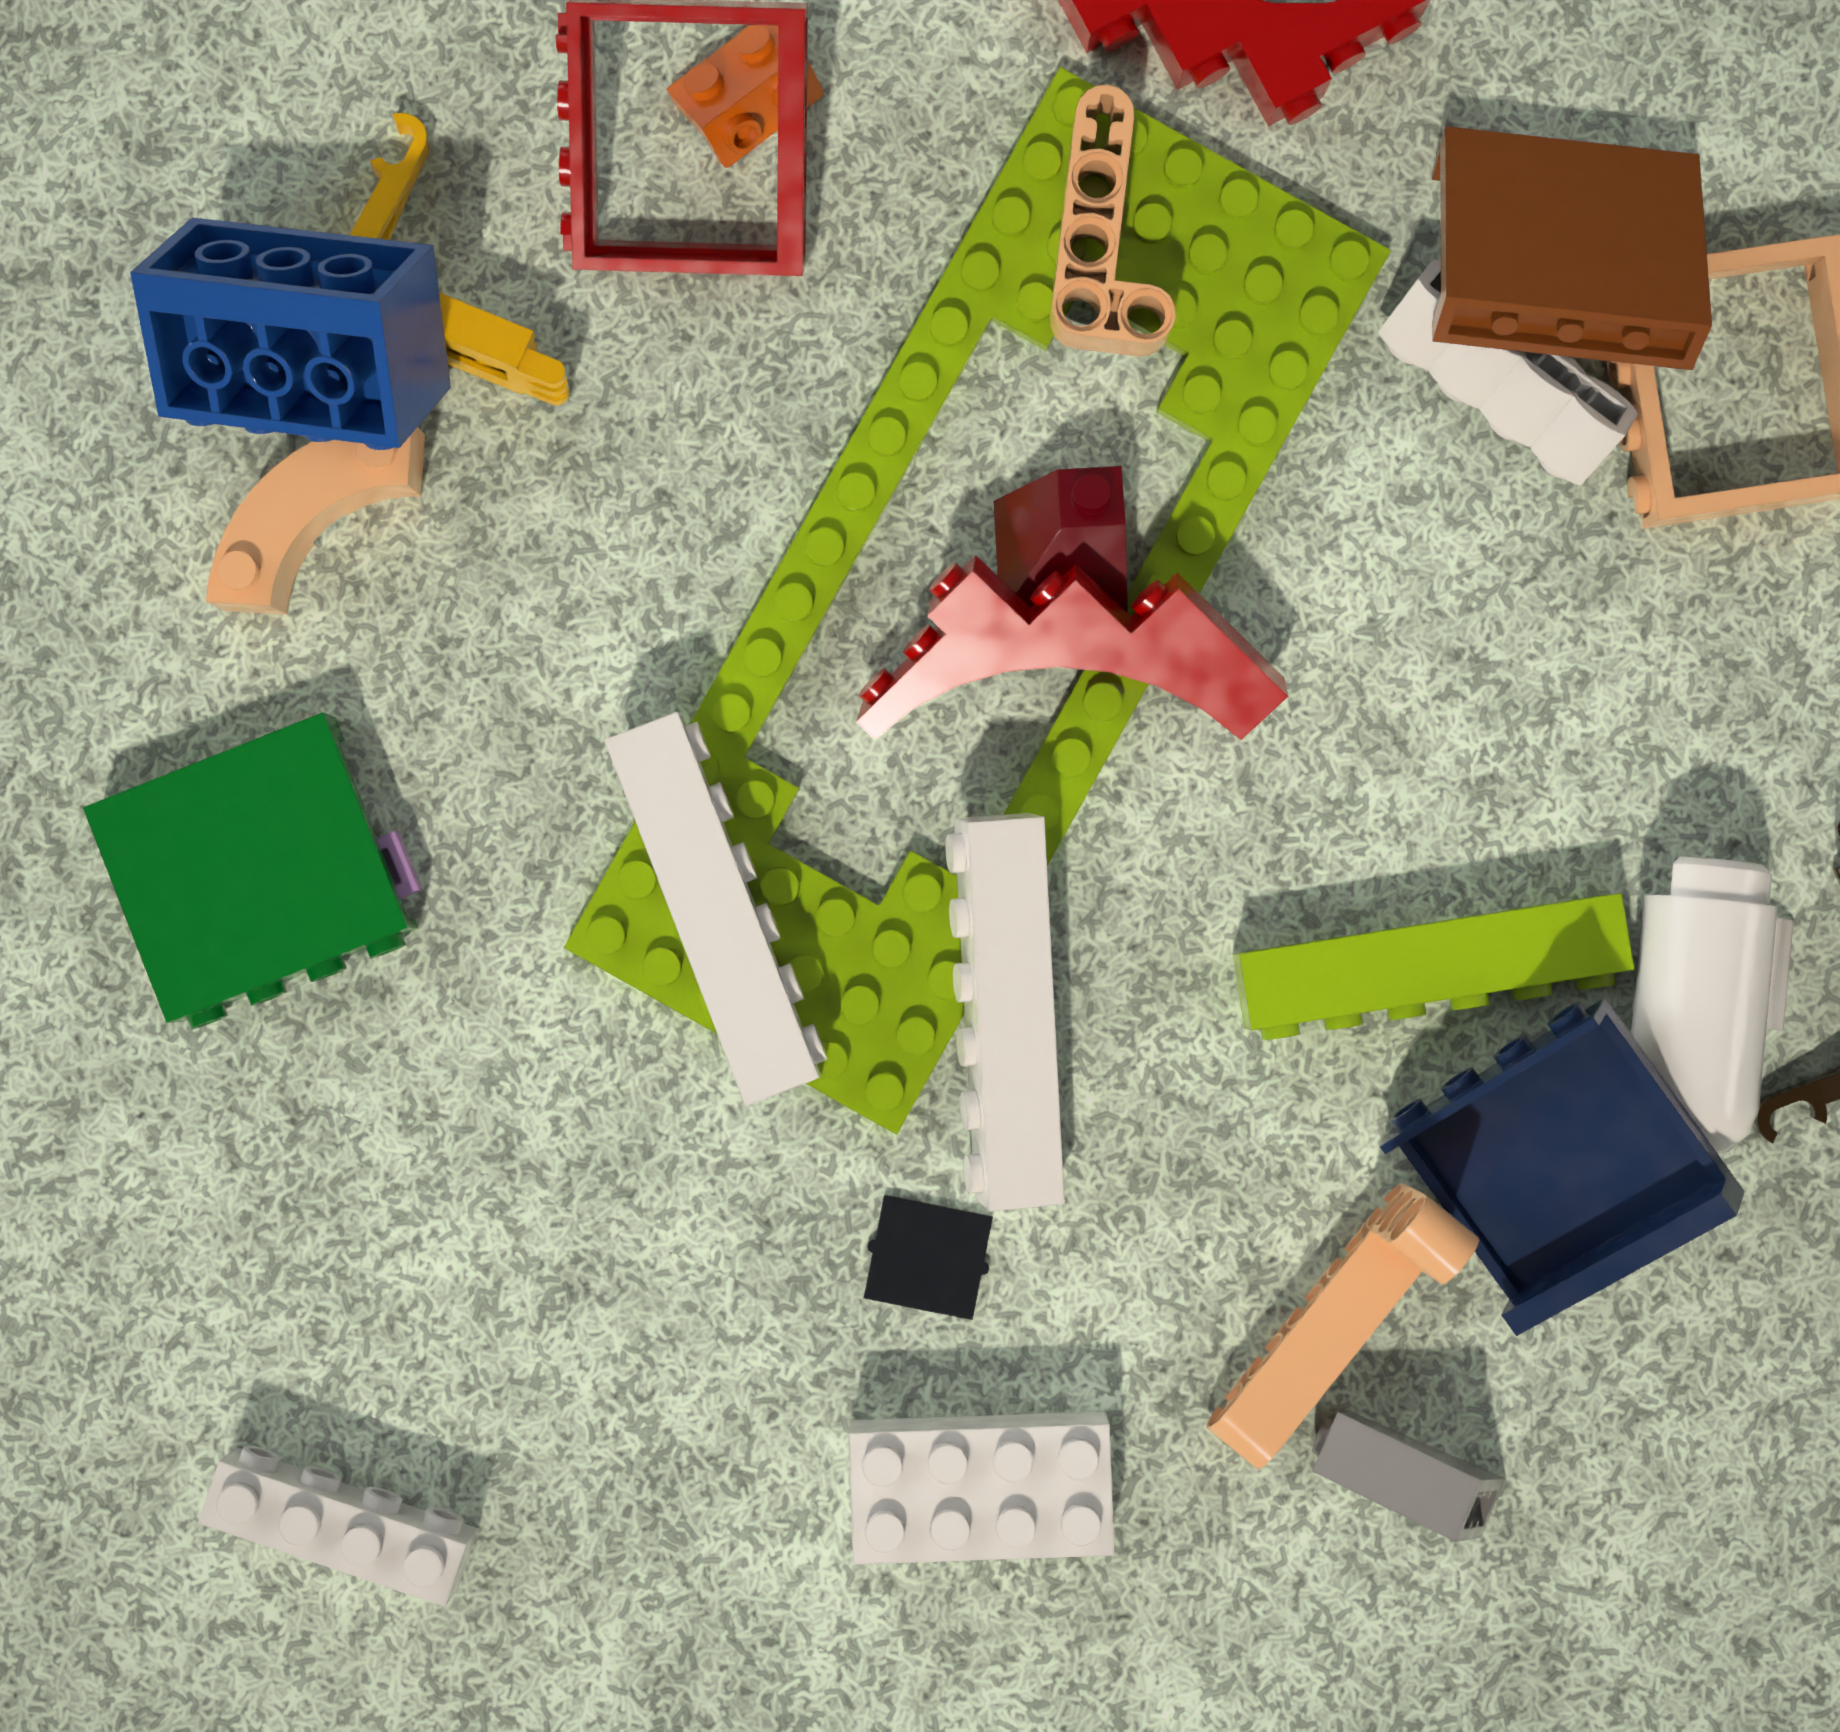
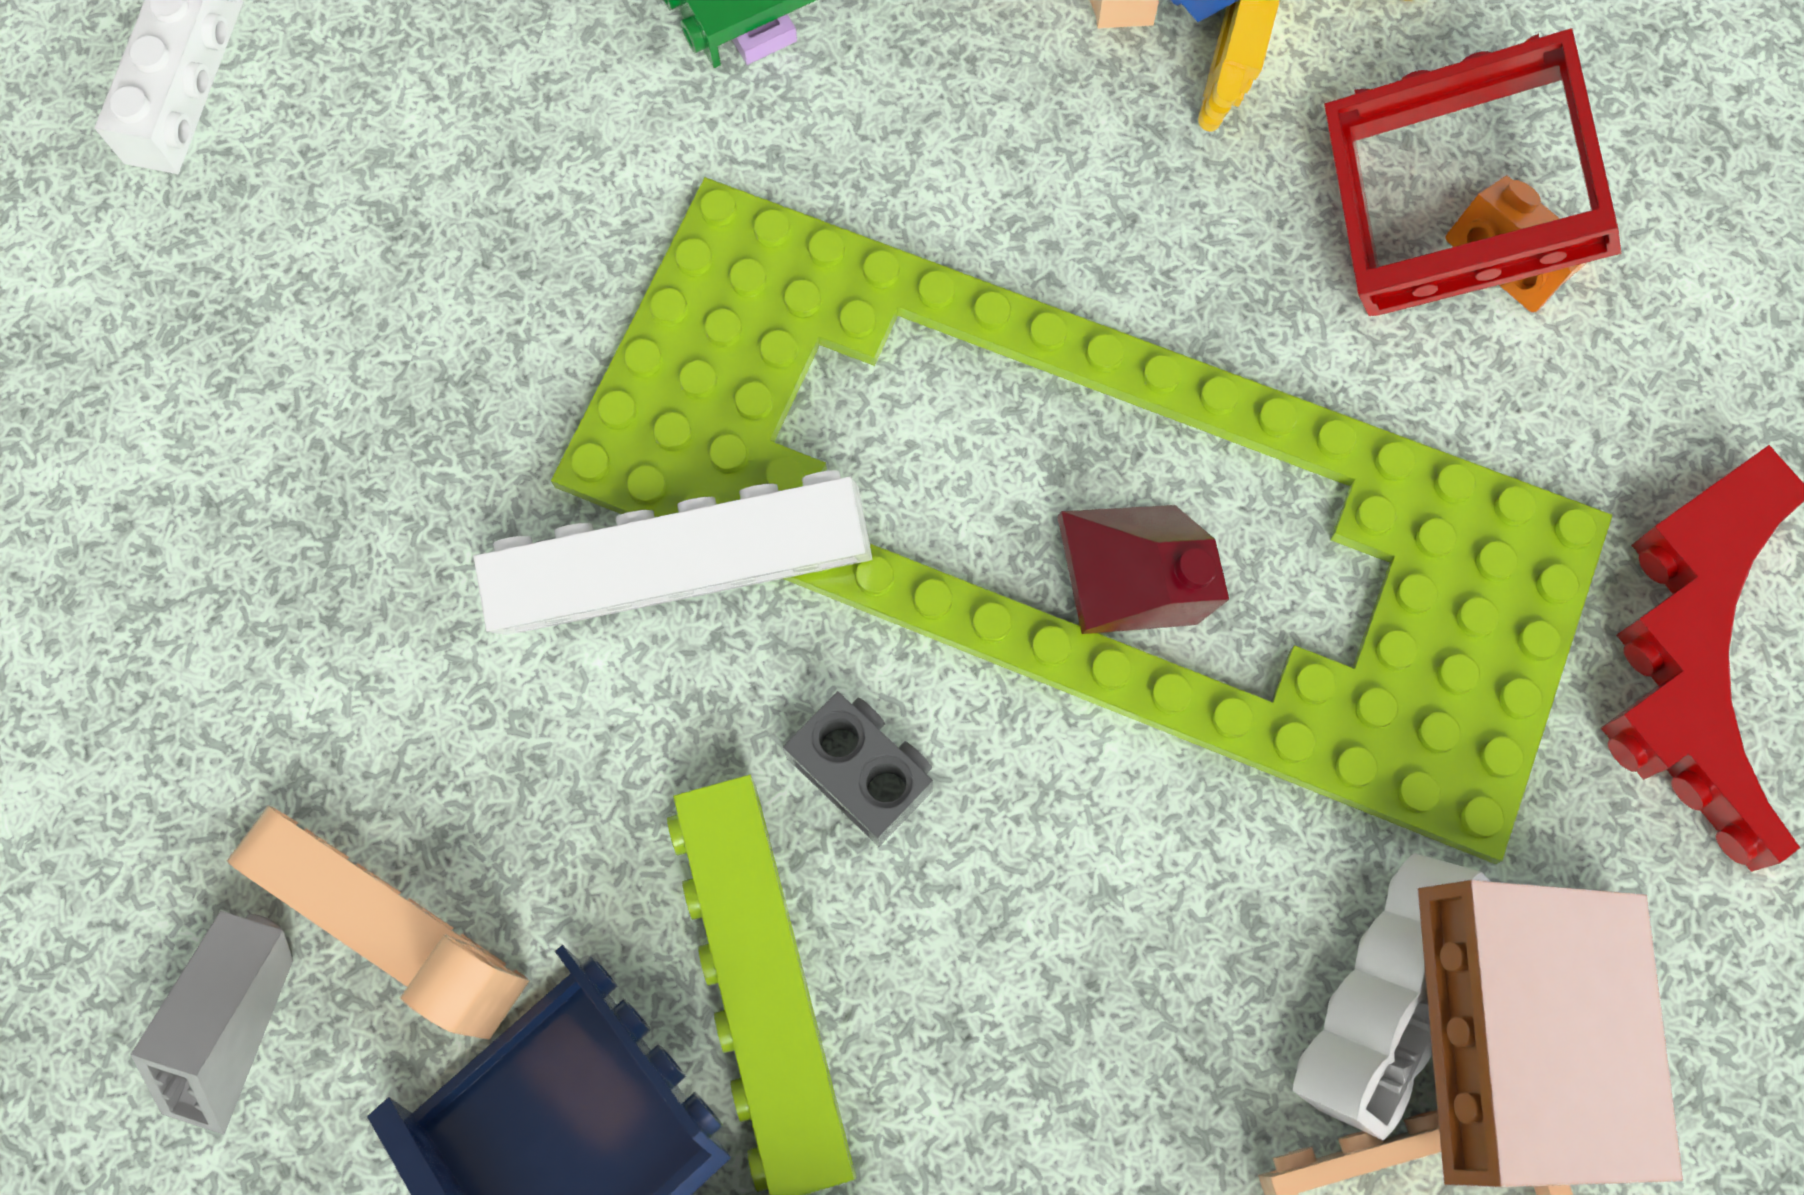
camera: 85 degrees right, 15 degrees down
(714, 908) = (747, 280): white brick -> none
(928, 1257) = (435, 527): black piece -> none
(981, 1488) = (206, 591): white brick -> none
(1074, 624) = (1059, 657): arch -> none
(1102, 221) = (1472, 556): light nougat beam -> none
(1244, 861) = (848, 777): none -> dark grey brick

